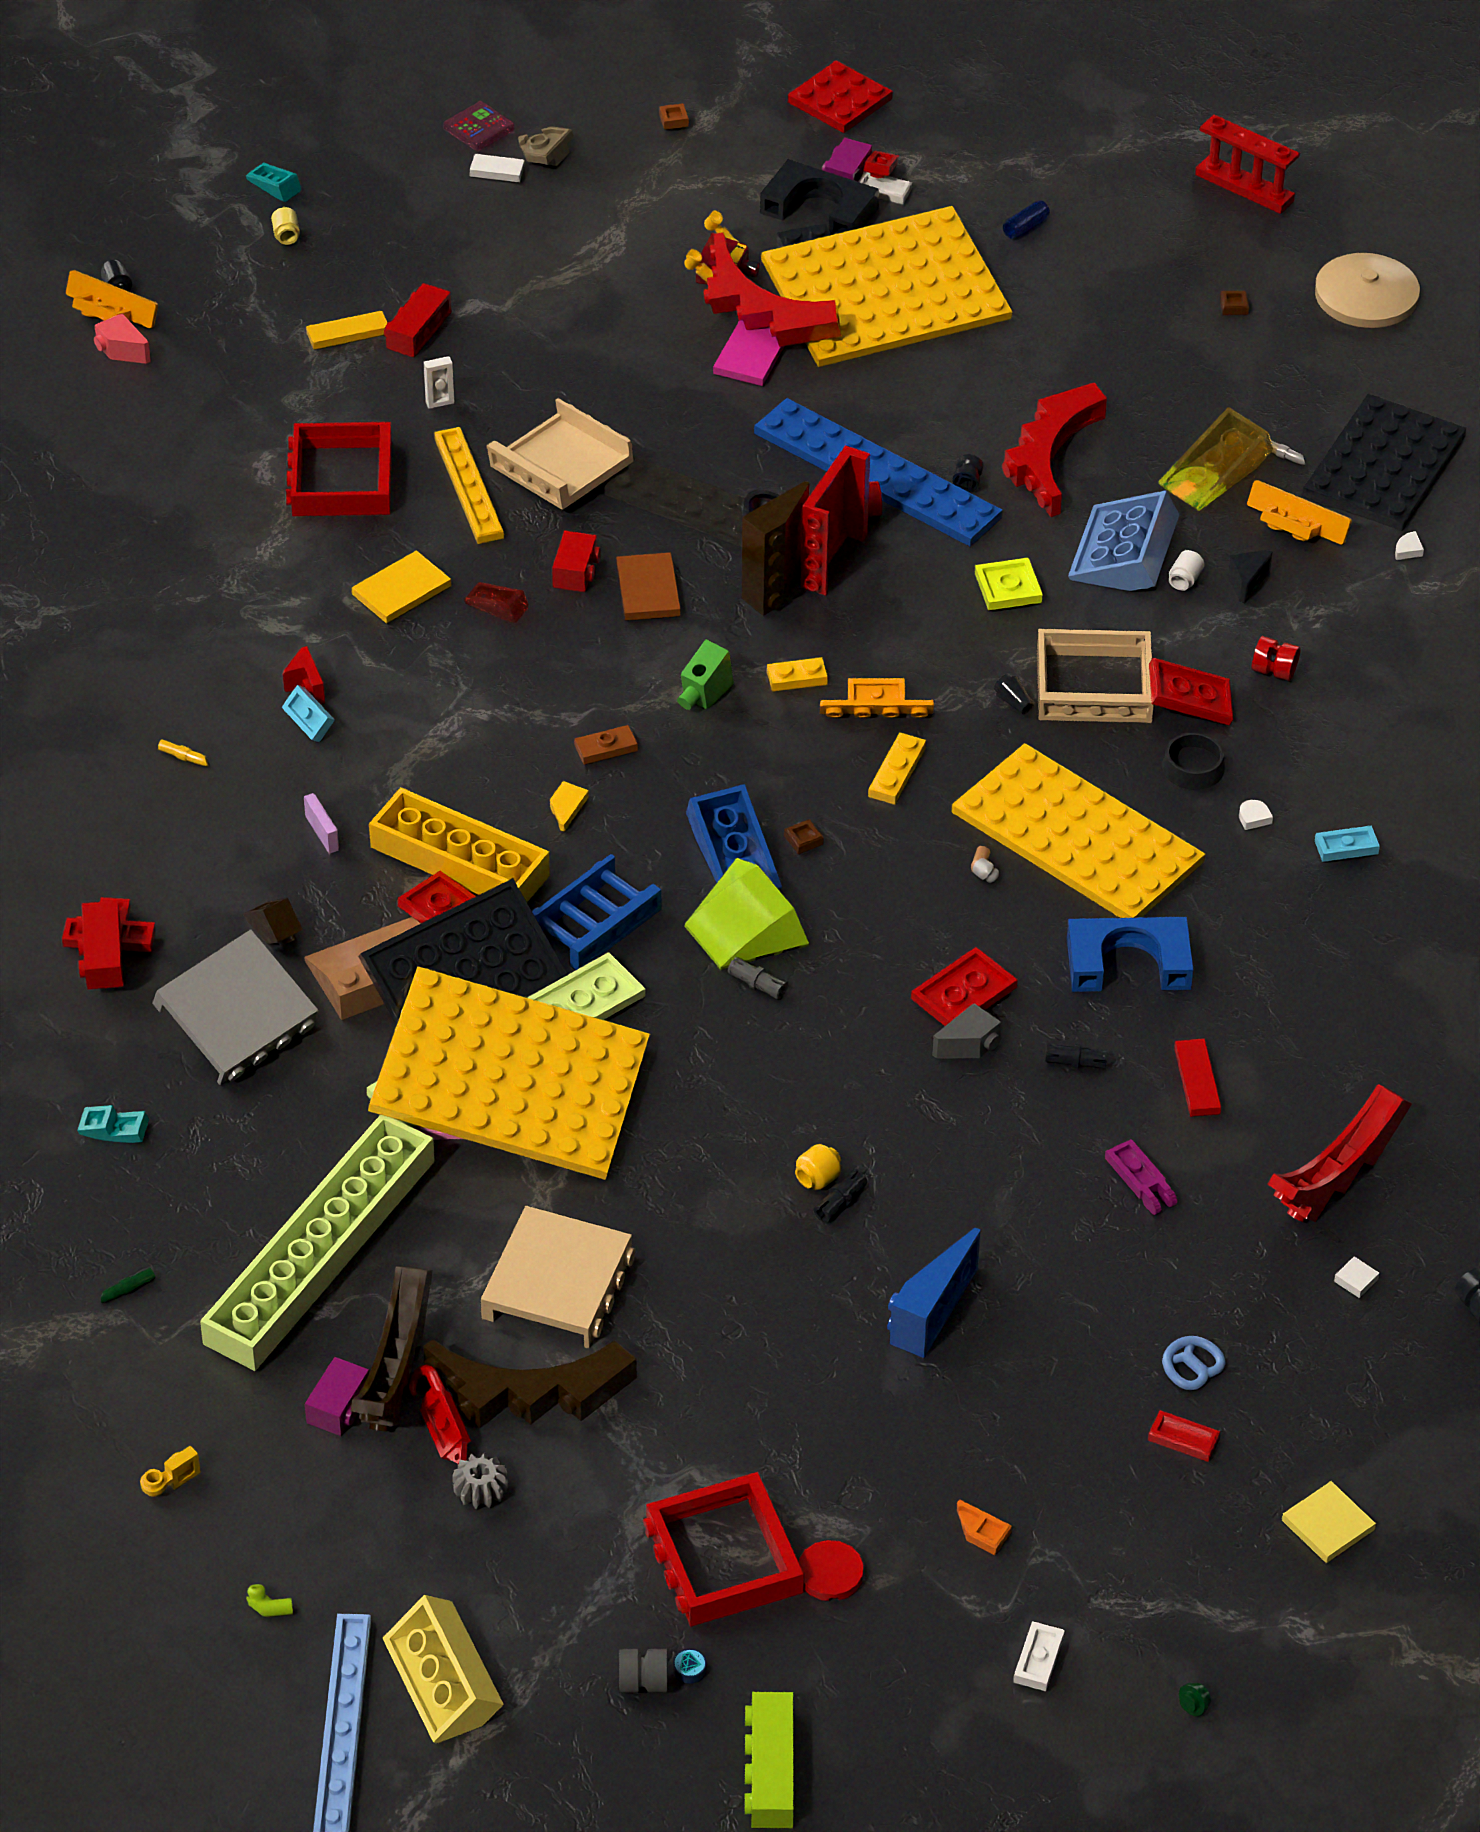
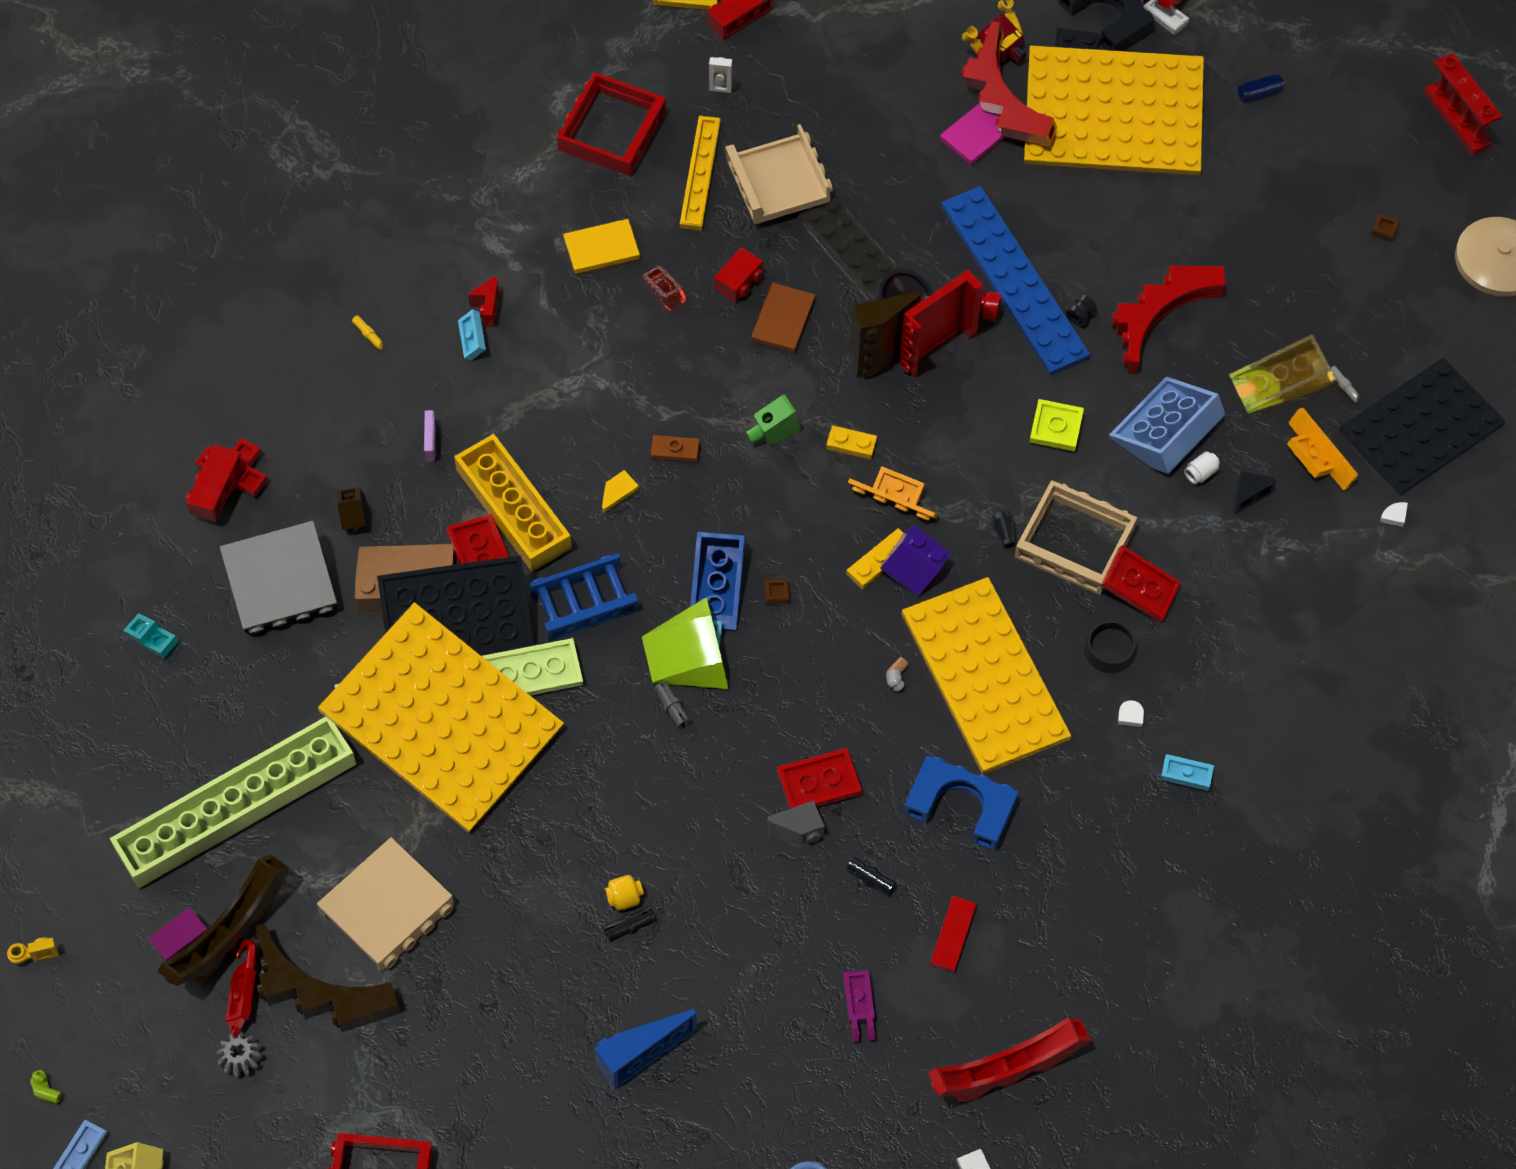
camera: 25 degrees right, 15 degrees up
(127, 1285) = (90, 776): dark green piece -> none
(939, 749) = (915, 560): none -> dark purple slope
(1285, 661) = (1231, 585): red wheel -> none

